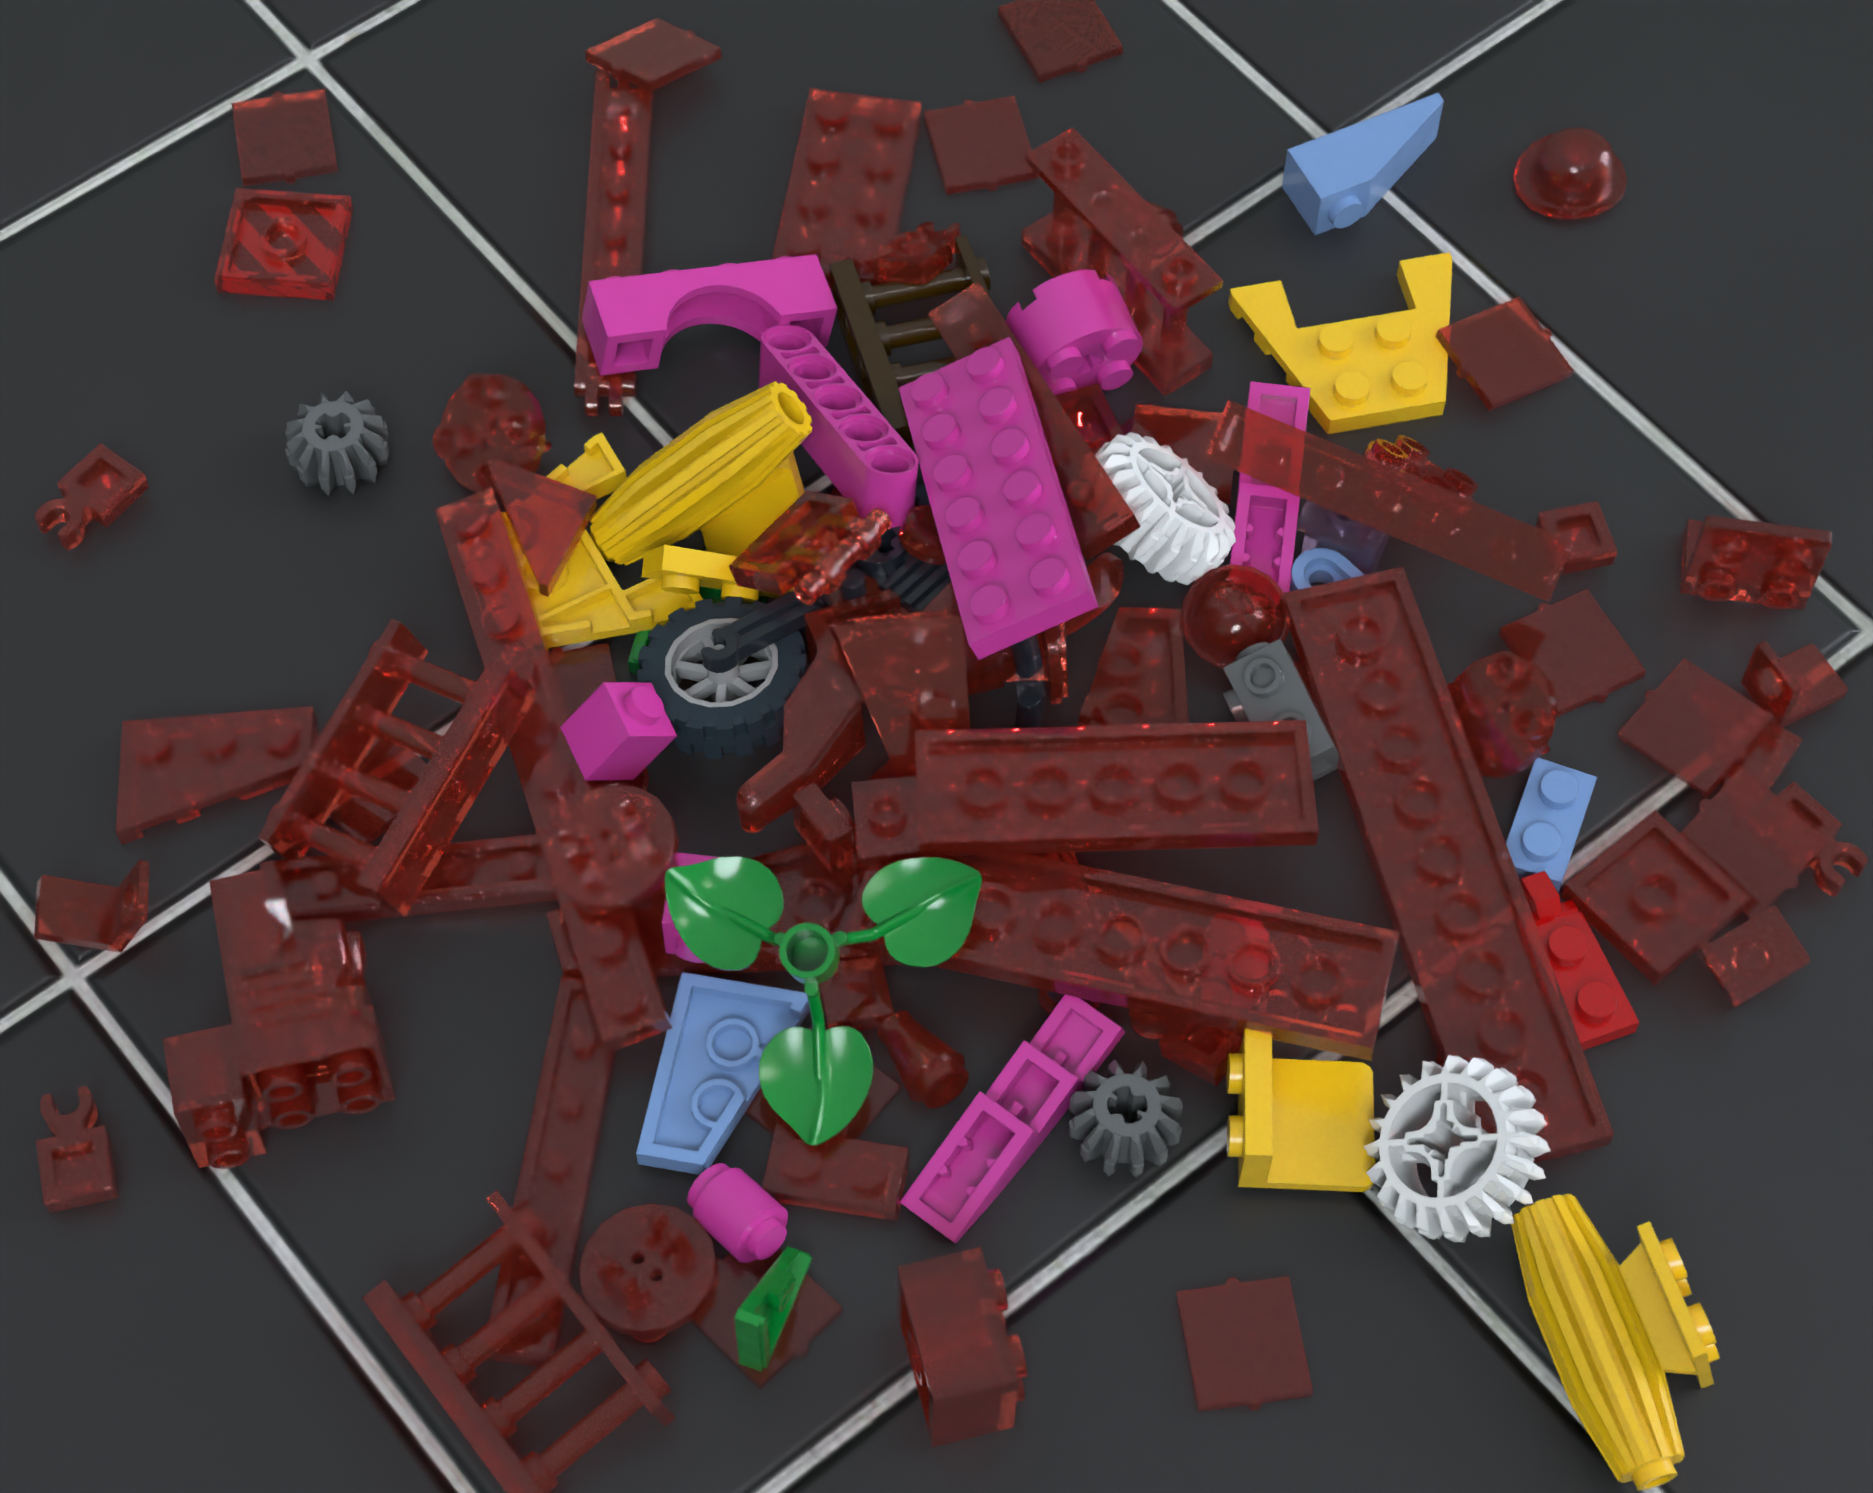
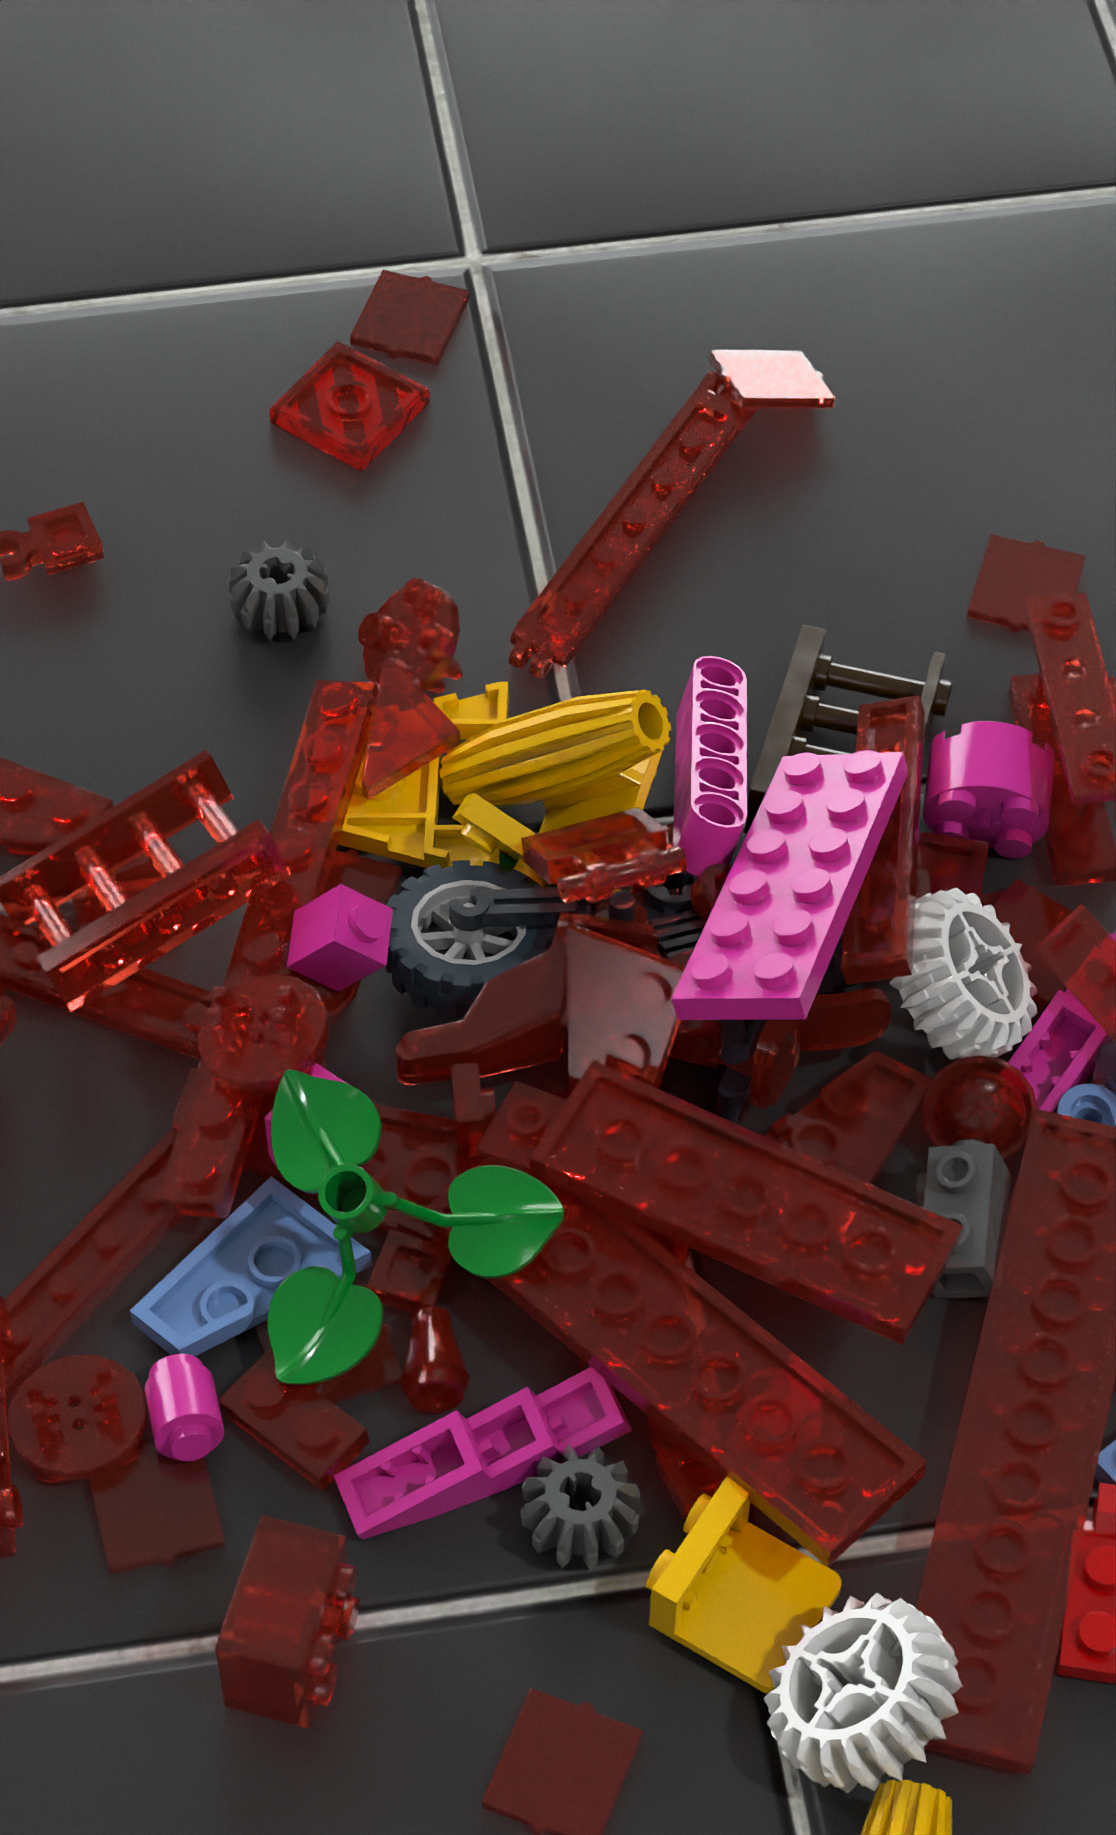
camera: 30 degrees right, 5 degrees down
(638, 314) = (604, 594): dark pink arch -> none
(768, 1308) = (146, 1501): green tile -> none
(848, 179) = (875, 570): clear red plate -> none
(916, 255) = (893, 654): clear red plate -> none

